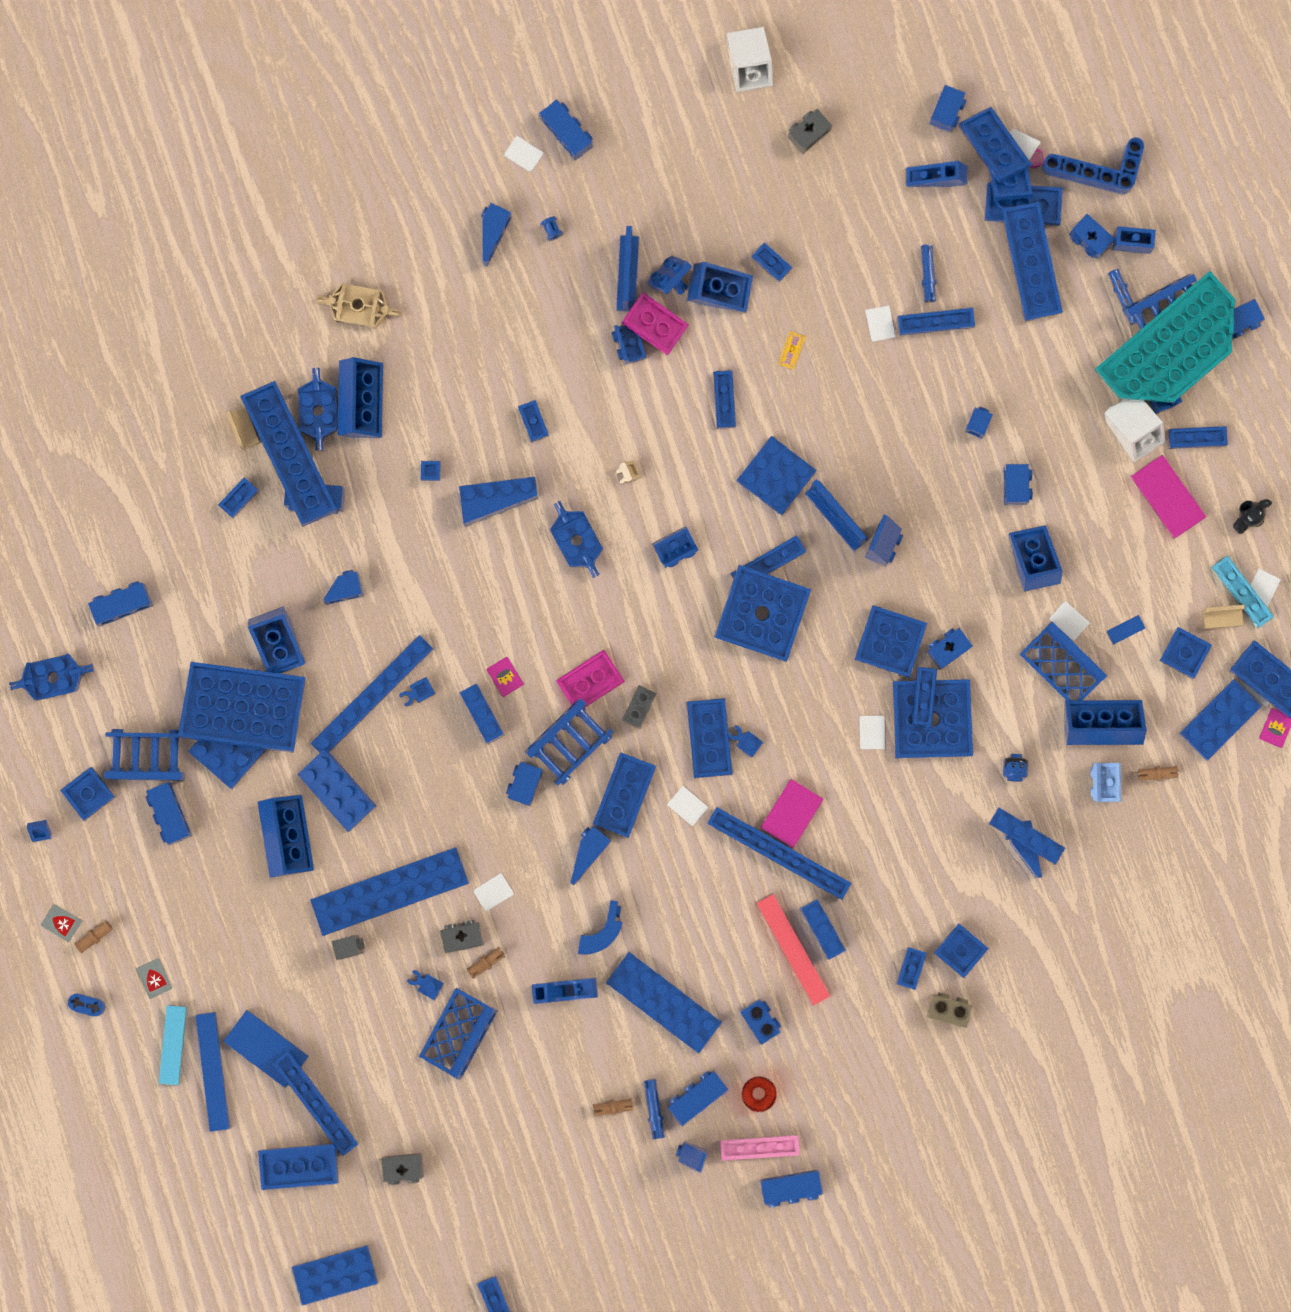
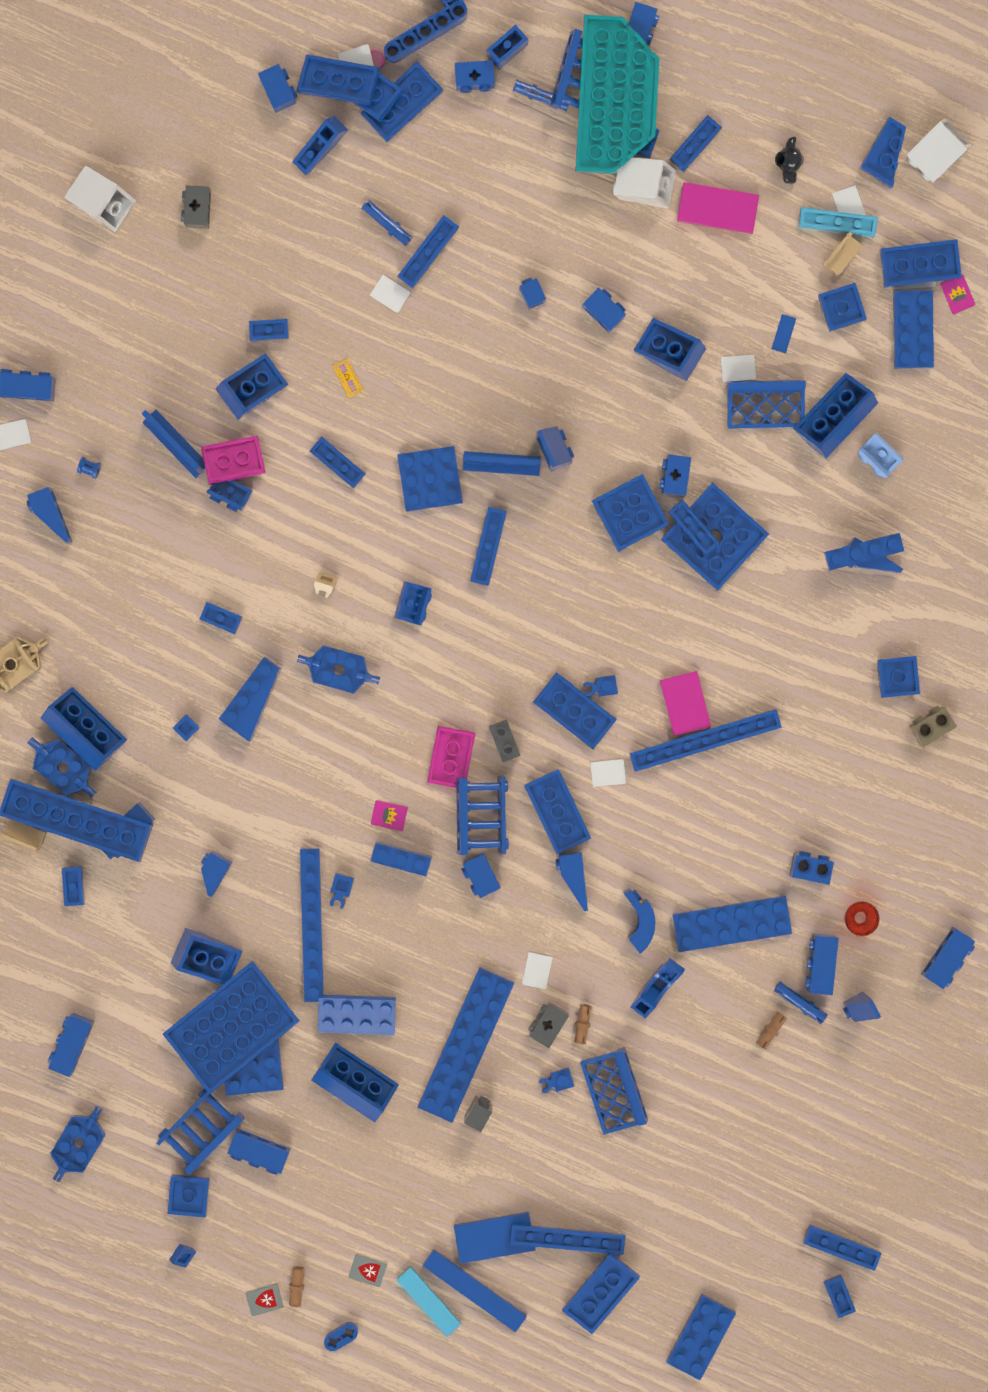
camera: 50 degrees left, 5 degrees up
(411, 1161) = (672, 1210): dark grey brick -> none
(670, 276) = (208, 415): blue plate -> none
(759, 1147) = (899, 953): bright pink plate -> none
(785, 606) = (544, 589): blue piece -> none
(793, 949) = (782, 795): coral tile -> none
(822, 929) = (789, 761): blue brick -> none
(872, 732) = (682, 589): white sticker -> none
(911, 968) = (877, 724): blue plate -> none
(1015, 768) = (807, 511): blue head -> none
(1031, 261) = (450, 138): blue plate -> none
(1158, 773) = (908, 412): medium nougat pin -> none

